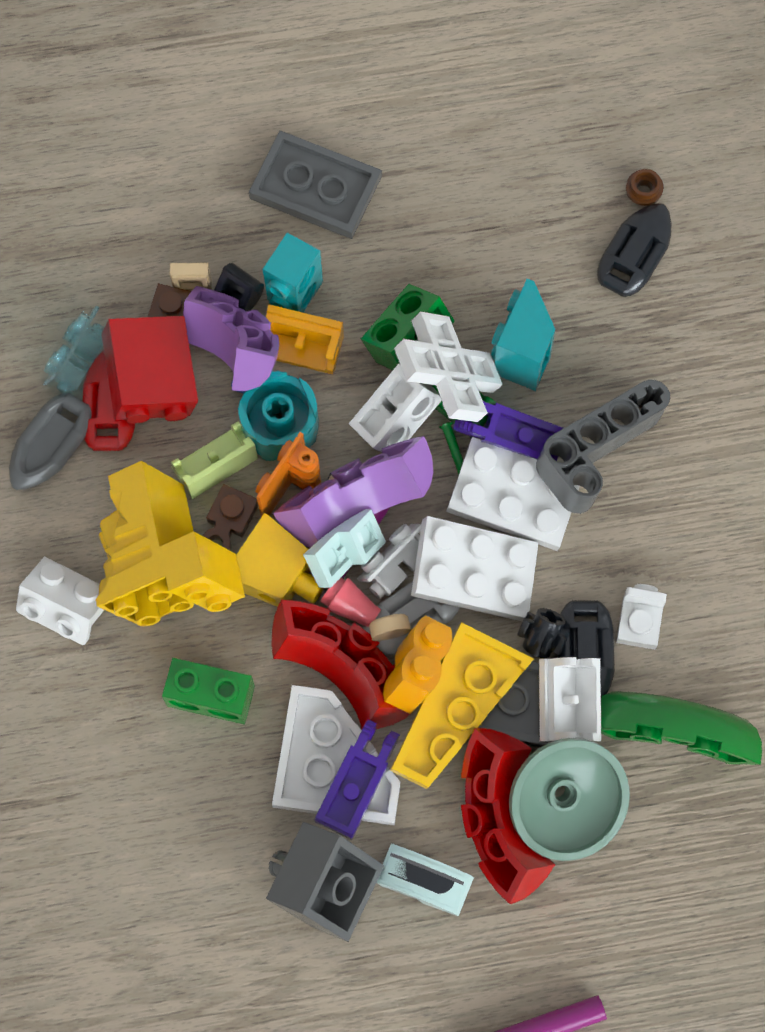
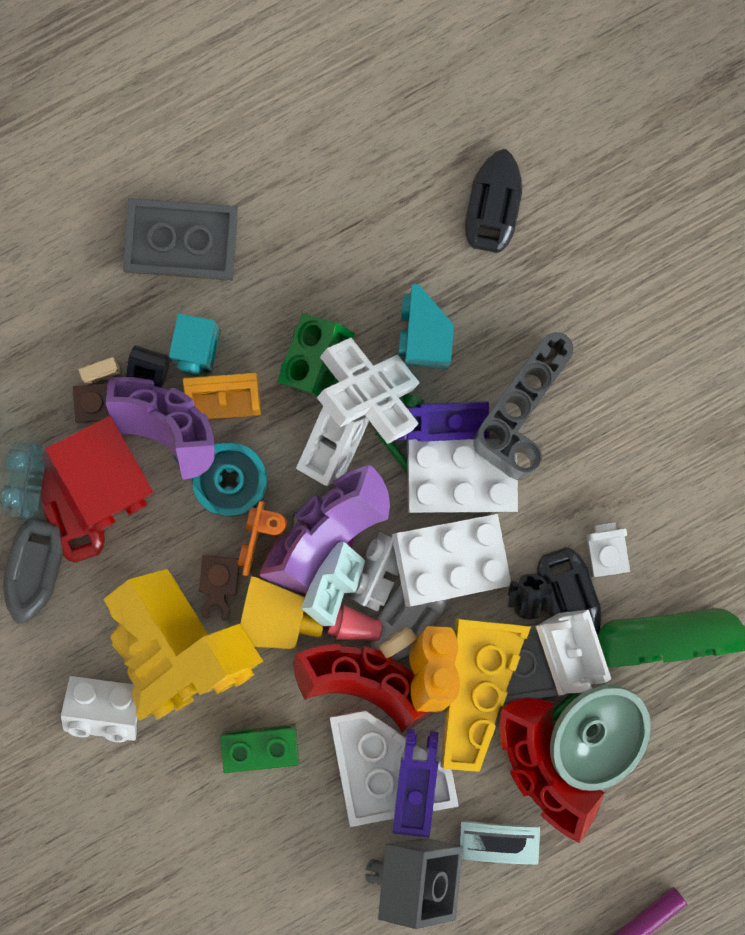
camera: 25 degrees left, 15 degrees up
(215, 461) = (185, 537): yellowish green hinge -> none
(647, 178) = (490, 131): reddish brown plate -> none

